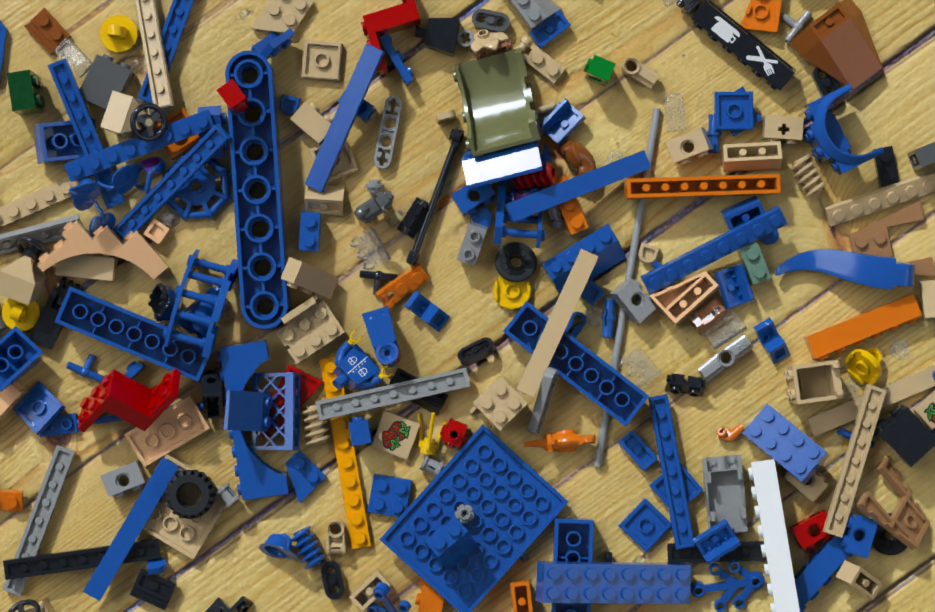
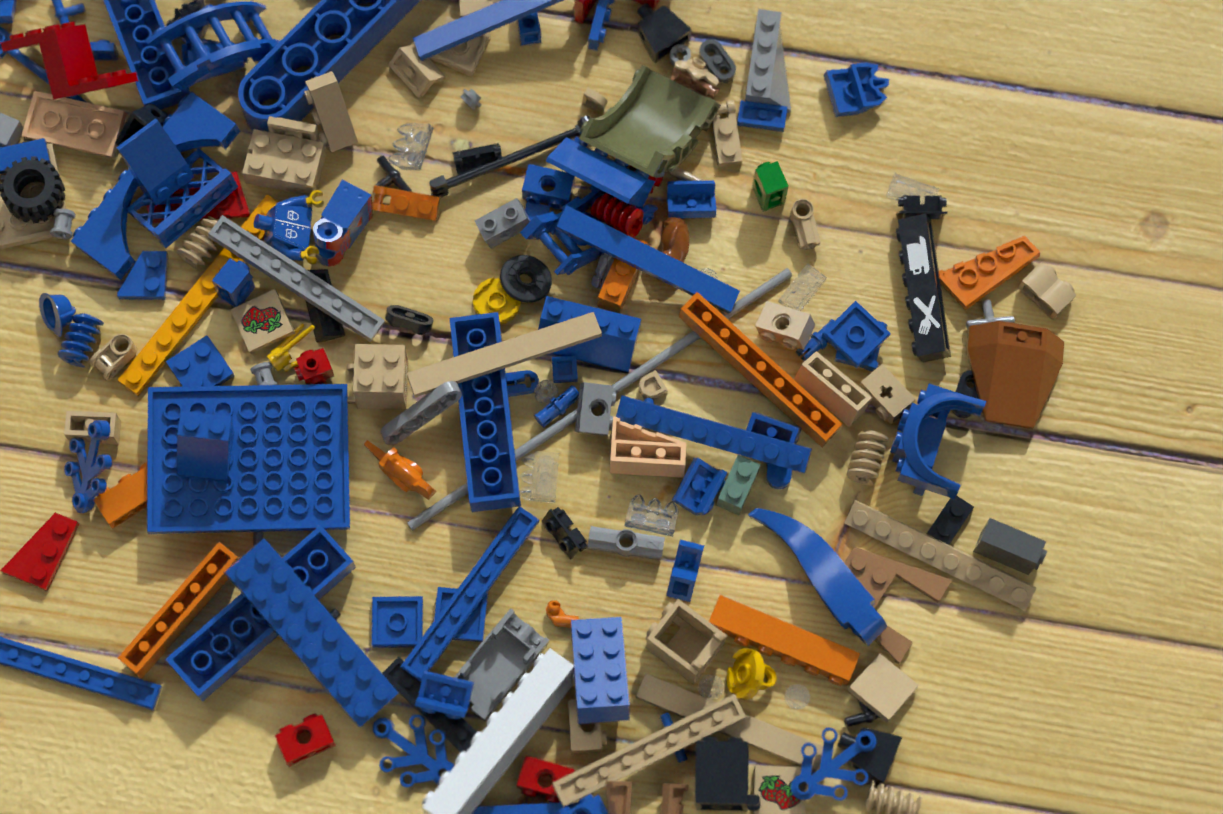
camera: 45 degrees right, 15 degrees down
(310, 232) = (374, 82): blue brick -> none
(332, 580) = (69, 389): black plate -> none
(375, 206) = (446, 109): dark grey animal -> none
(388, 132) = (528, 65): light grey beam -> none
(427, 311) = (403, 244): blue slope -> none
(469, 514) = (247, 446): light grey plate -> none
(637, 450) = (461, 546): blue plate -> none
(707, 316) = (648, 490): nougat leg -> none

